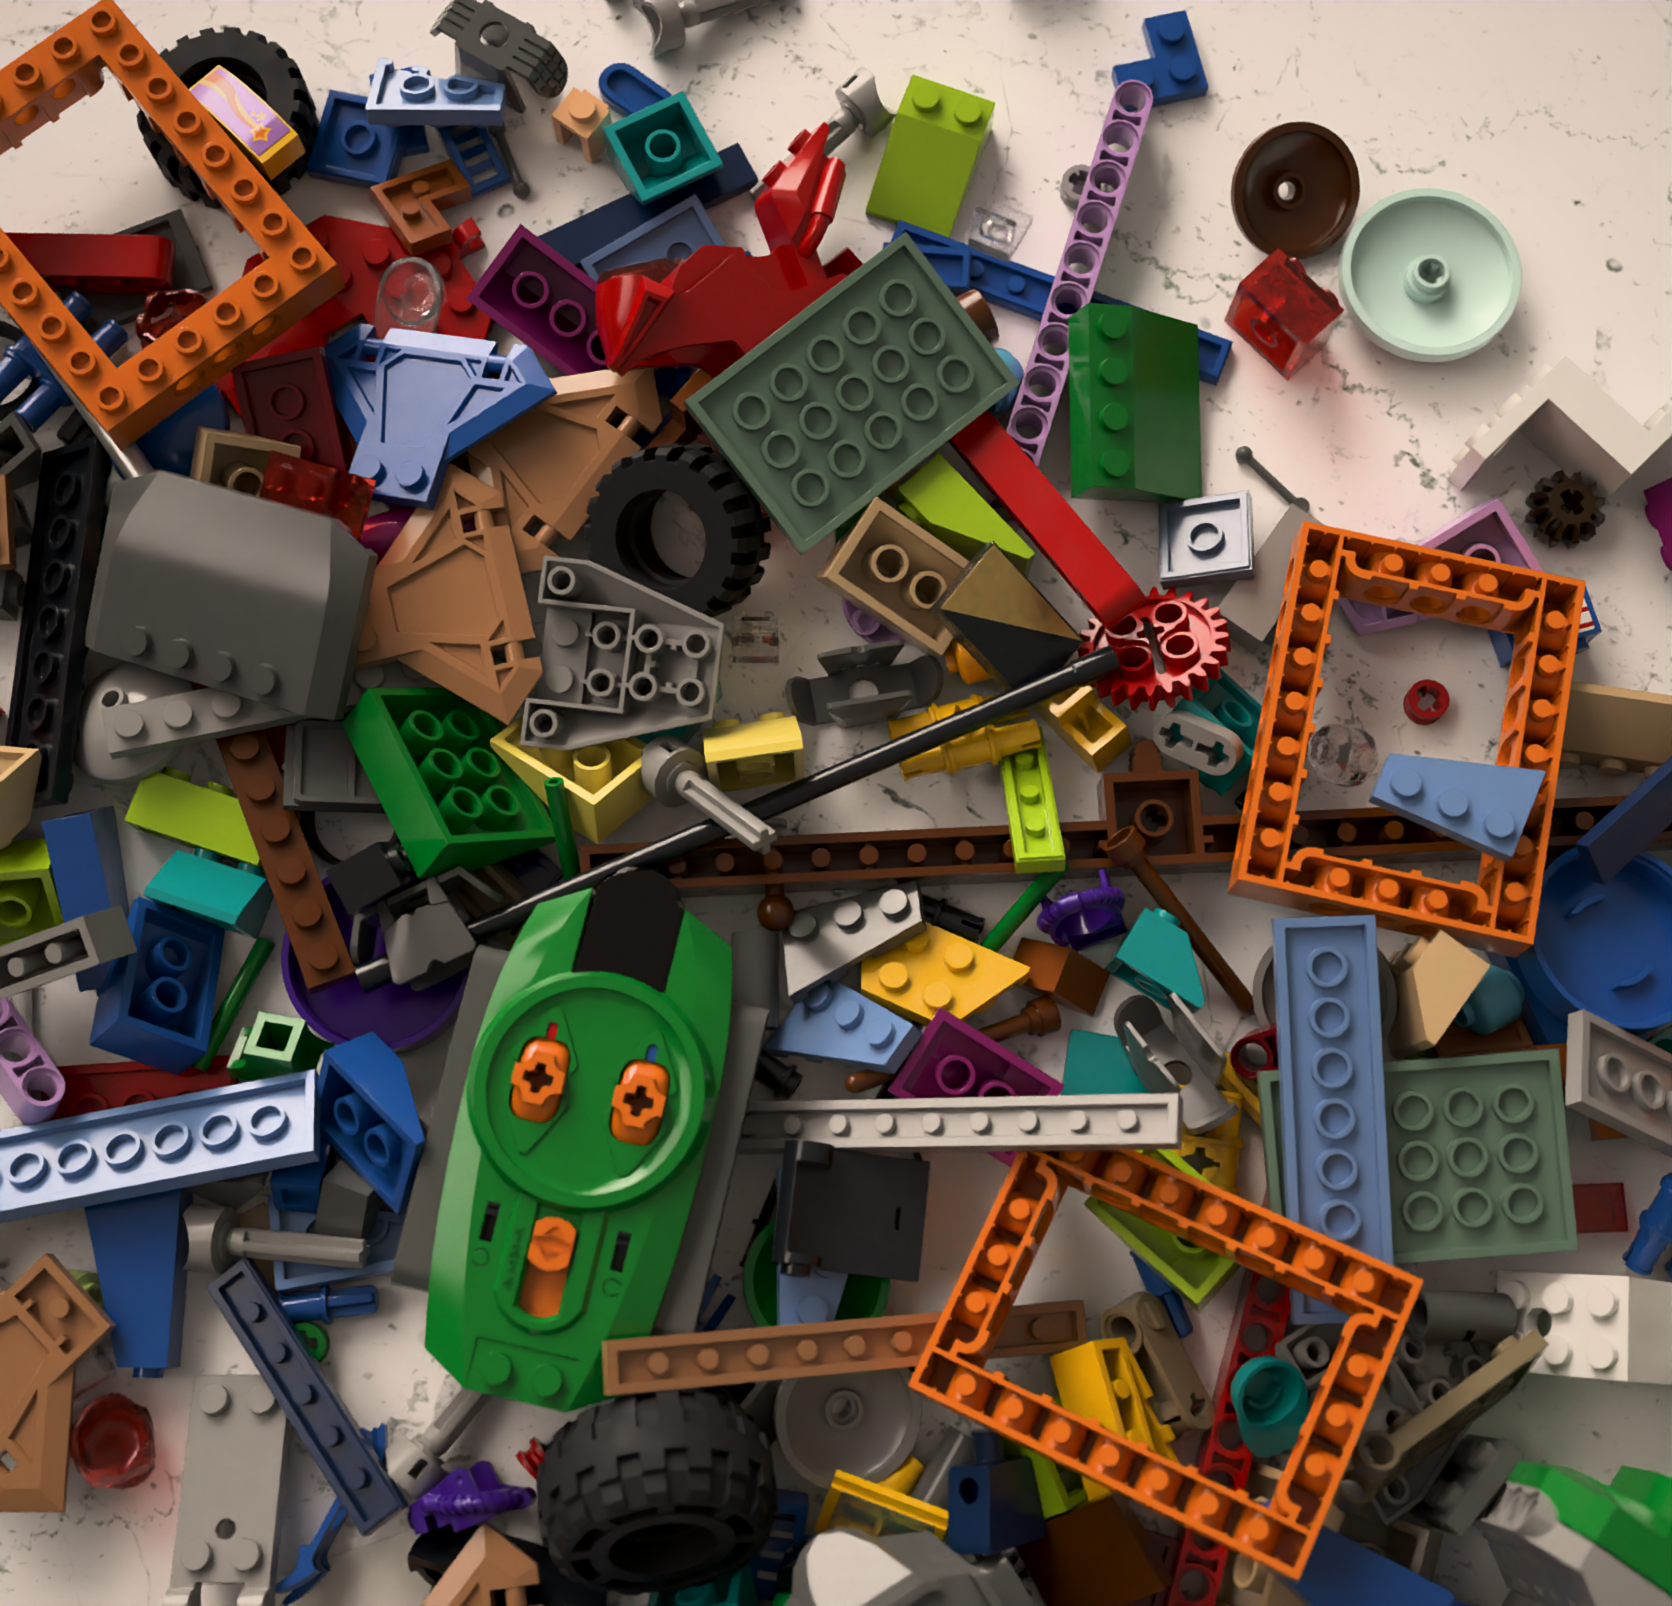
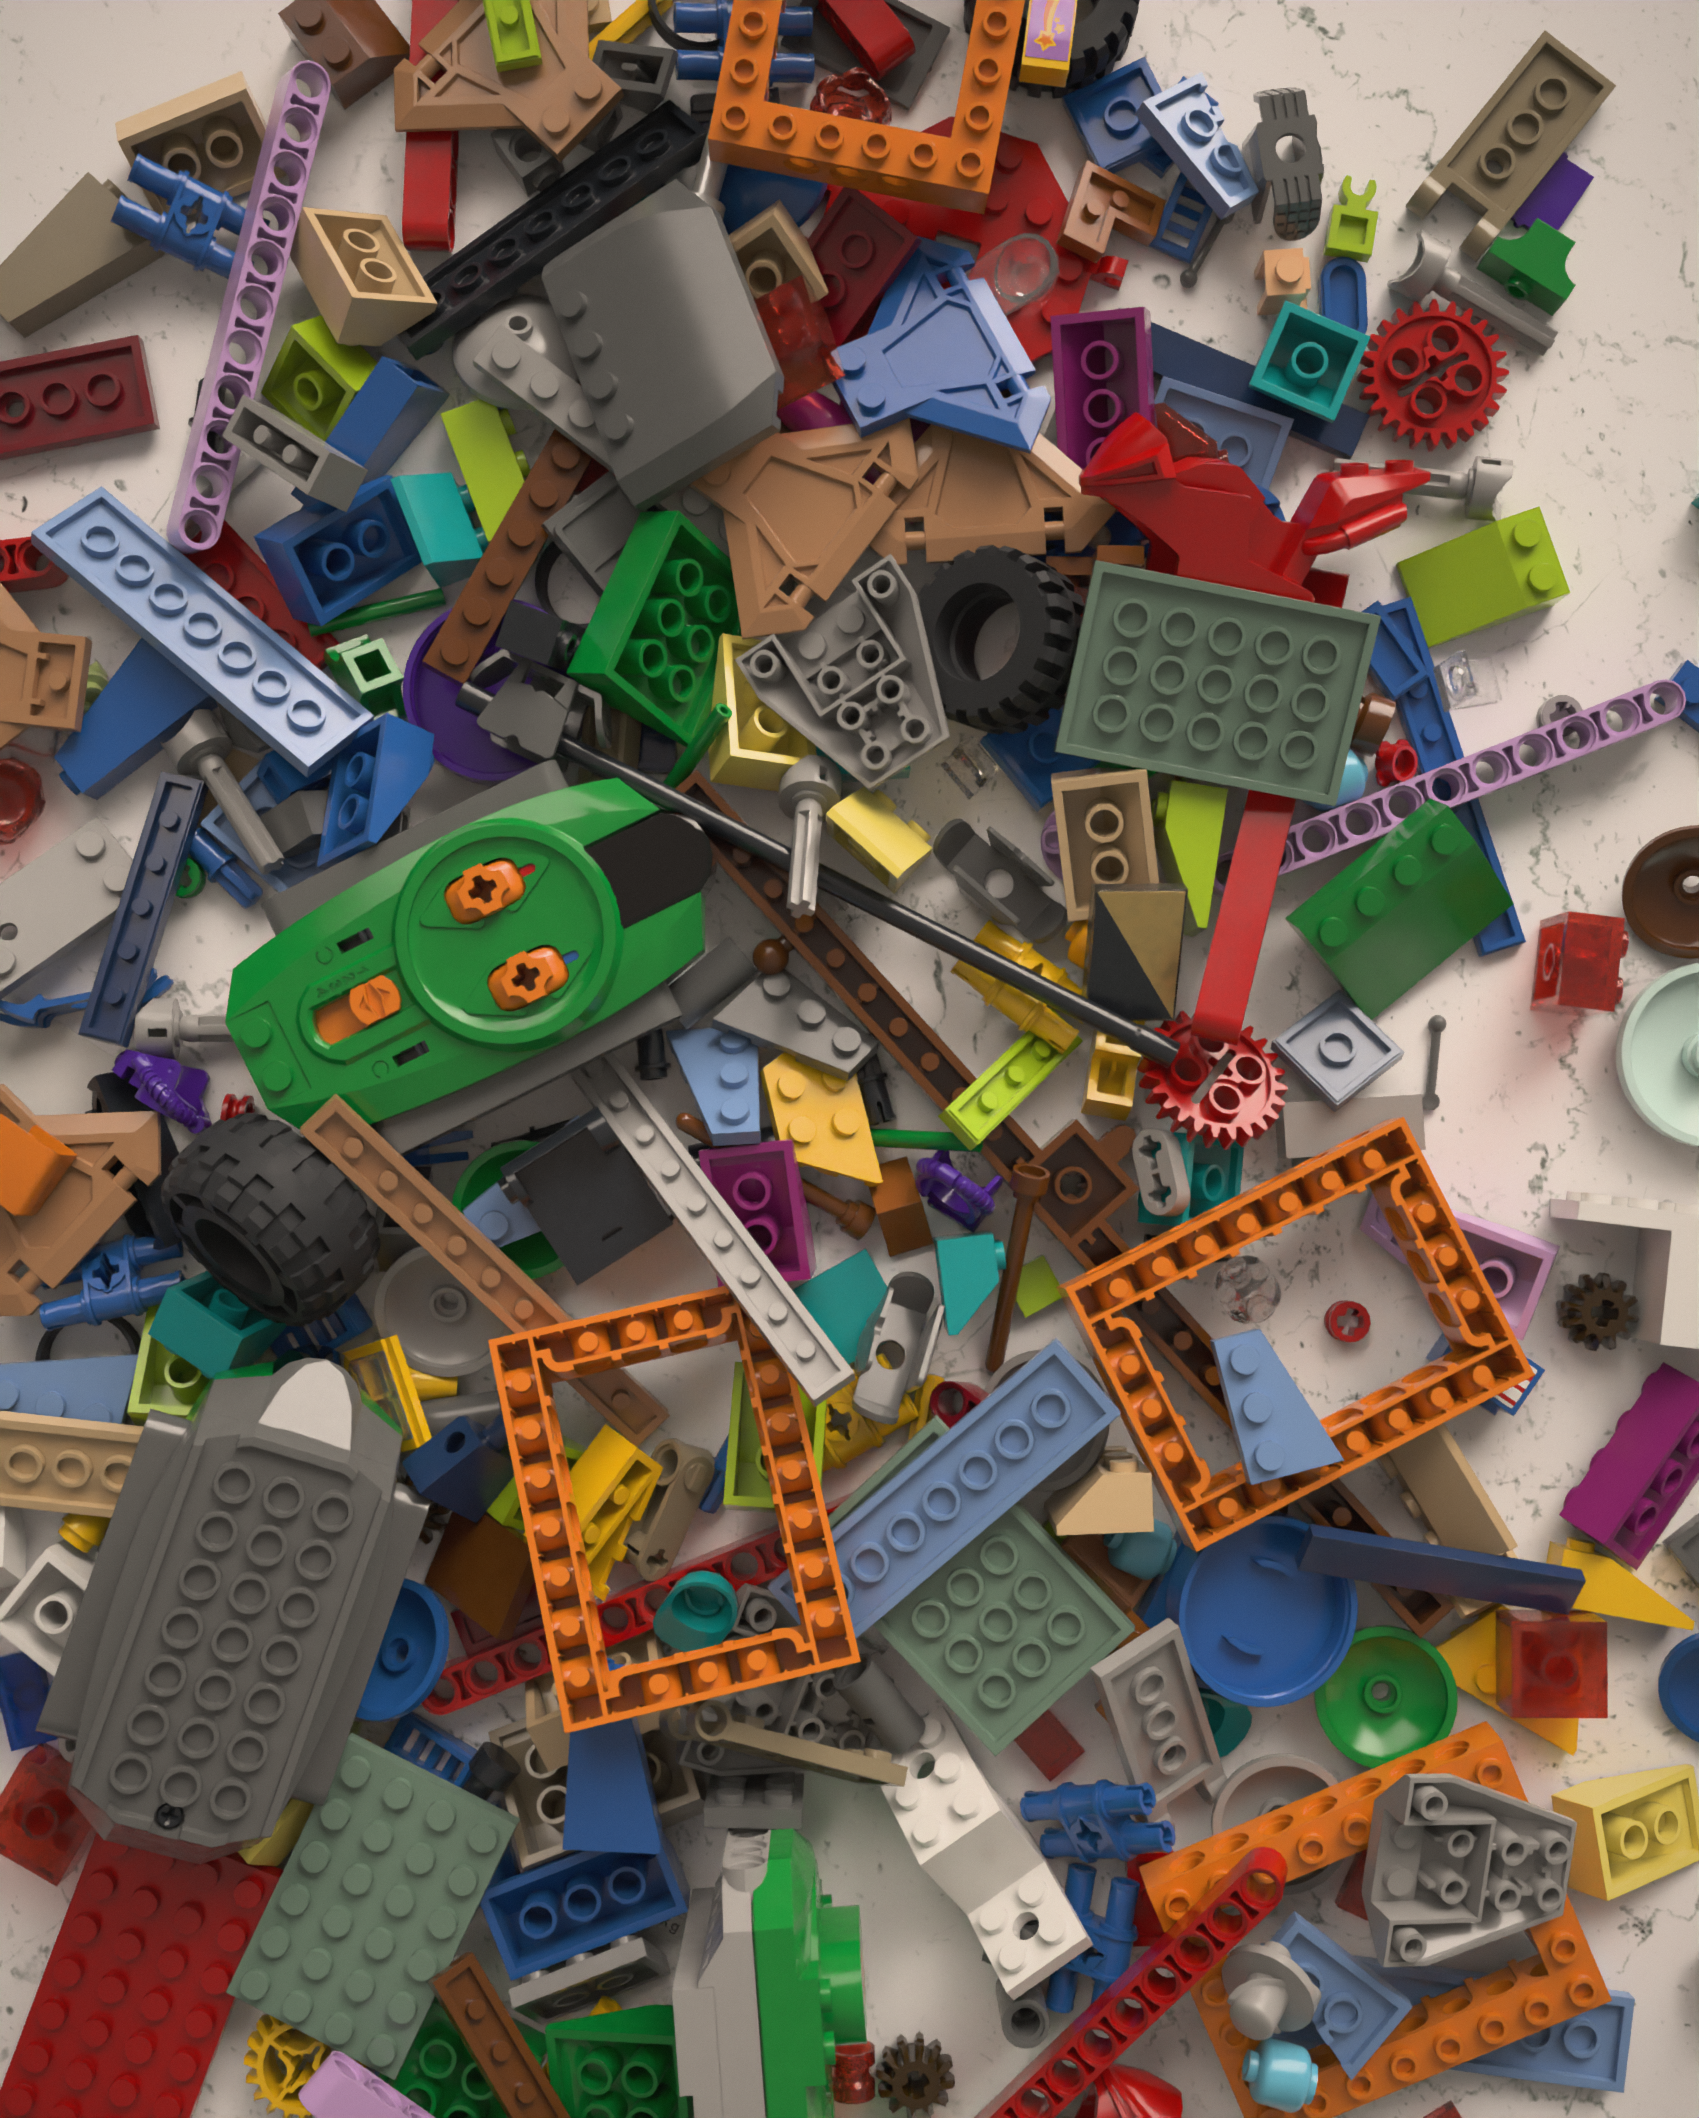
camera: 50 degrees right, 10 degrees up
(584, 47) = (1350, 225): none -> lime plate
(787, 81) = (1453, 409): none -> red gear
(789, 582) = (1030, 758): none -> blue tile
(1017, 327) = (1395, 762): none -> red plate
(1213, 917) = (1036, 1286): none -> lime tile

